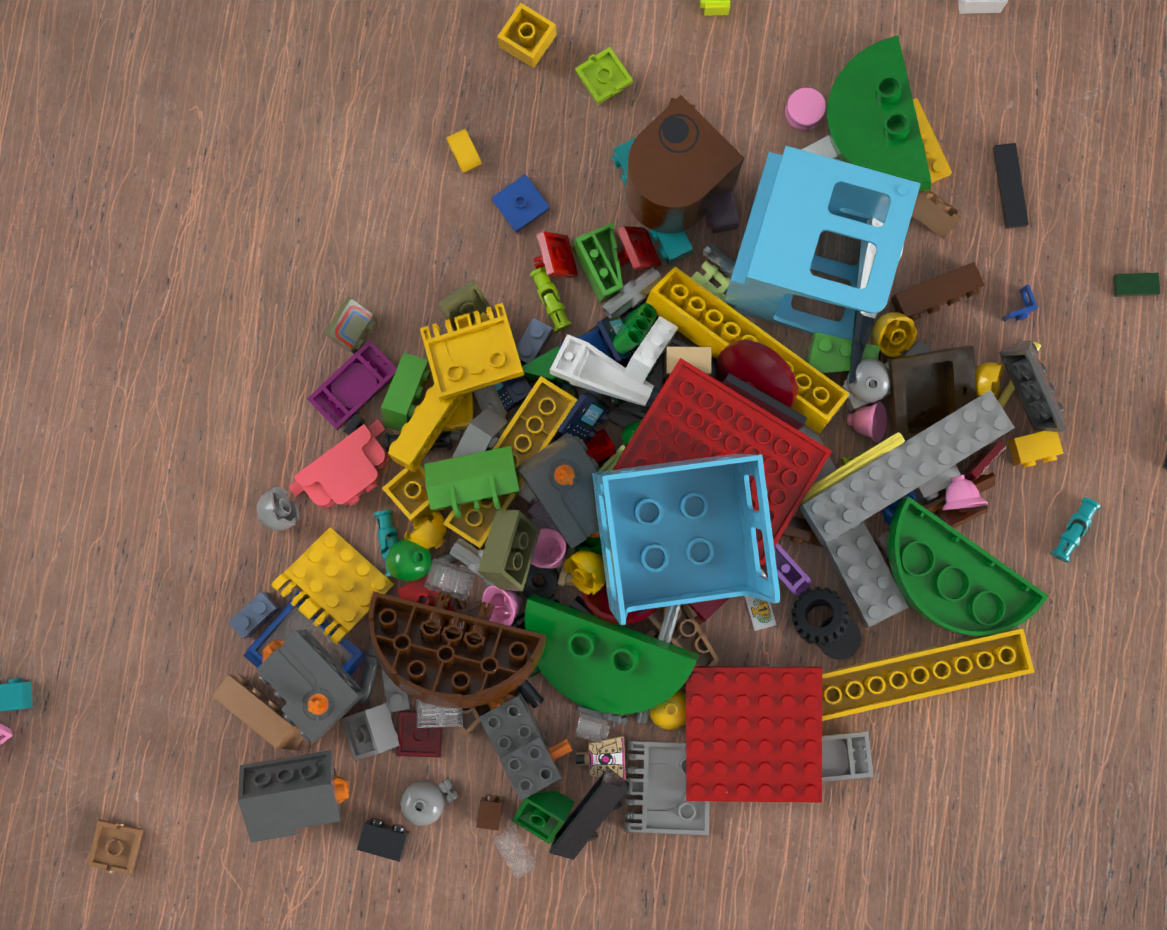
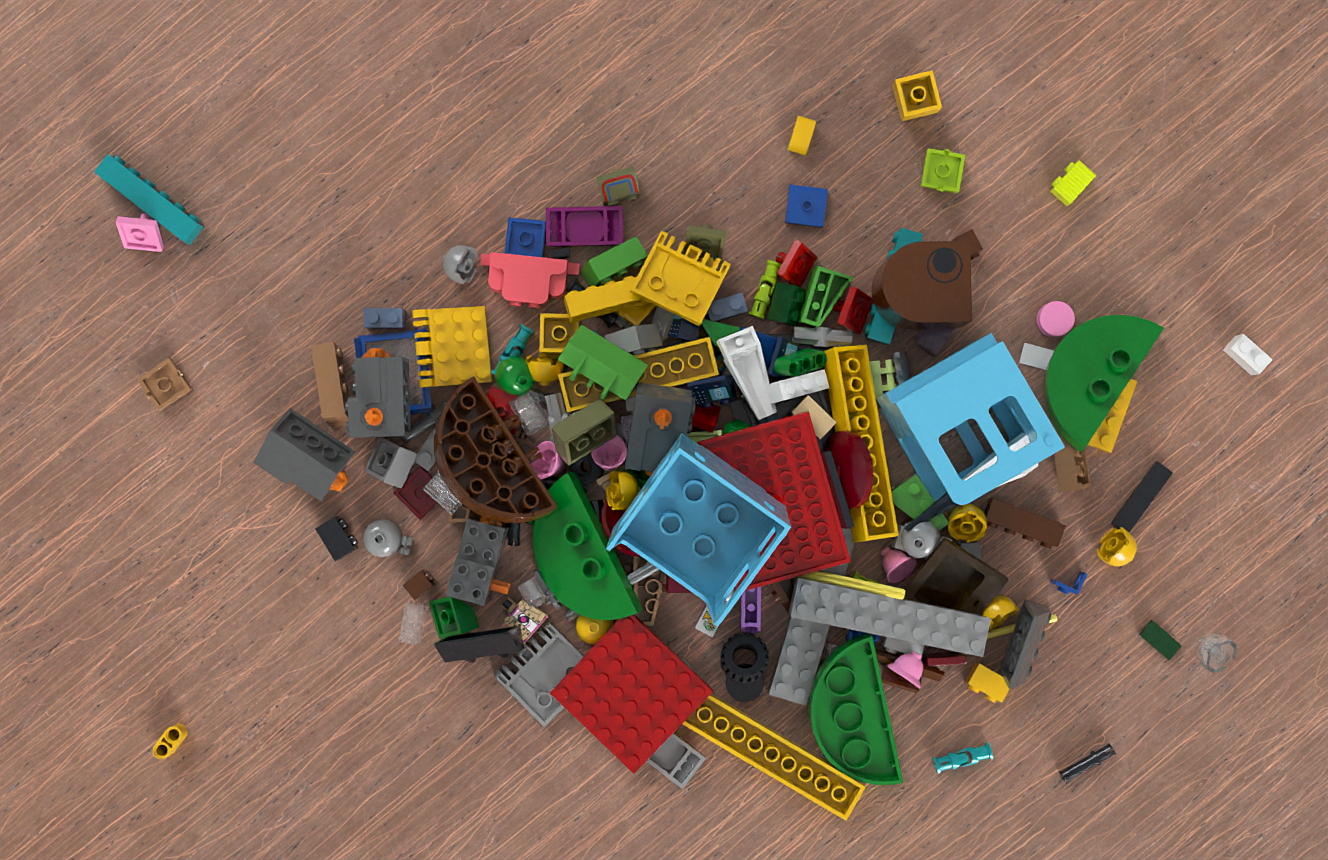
camera: 40 degrees right, 5 degrees up
(312, 438) = (525, 237): none -> blue plate
(579, 294) = (786, 304): none -> dark green brick
(1031, 241) = (1117, 547): none -> yellow cylinder

